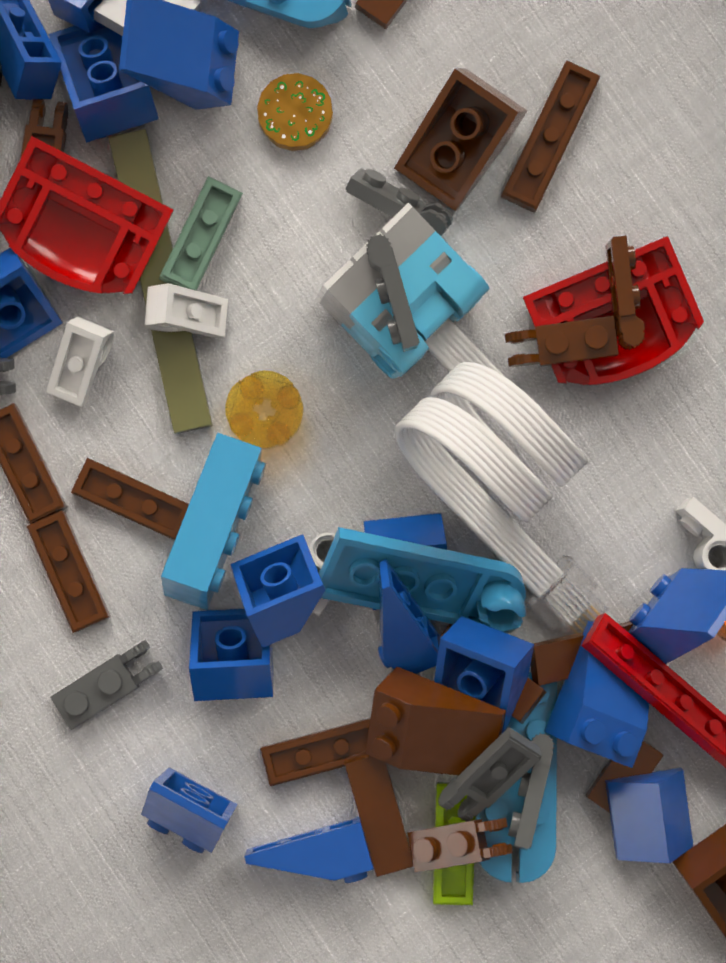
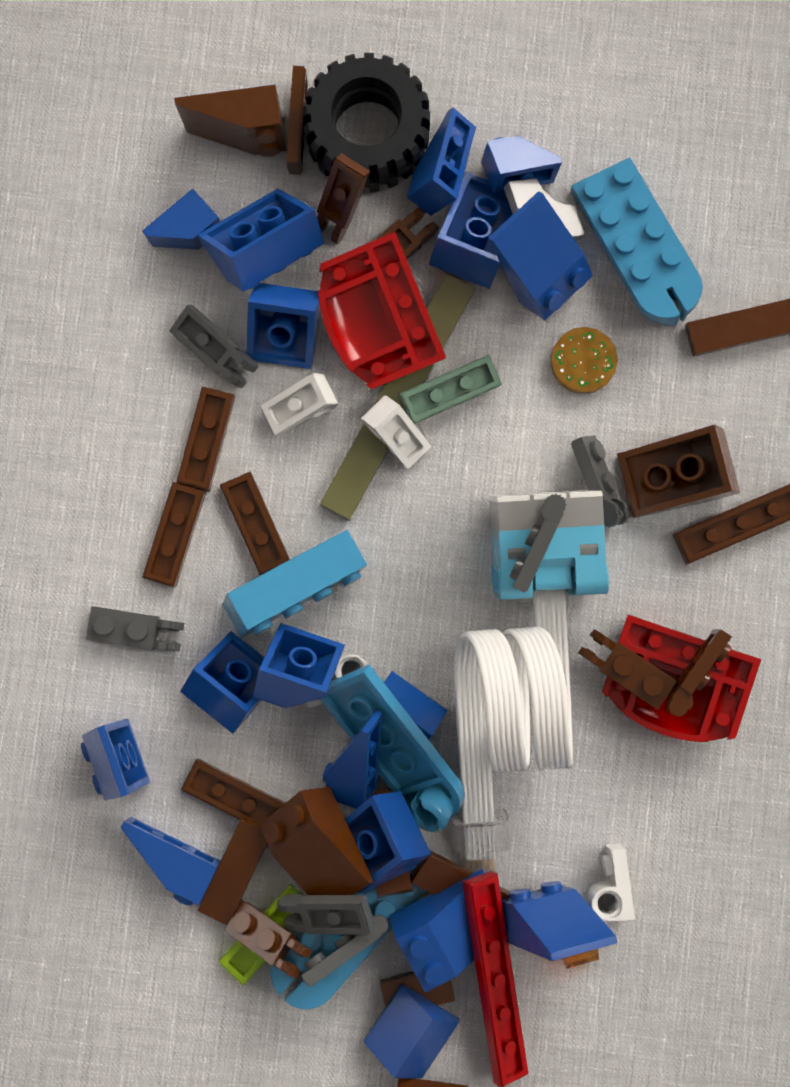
camera: 50 degrees right, 0 degrees up
(253, 391) = (396, 521): clear yellow plate -> none

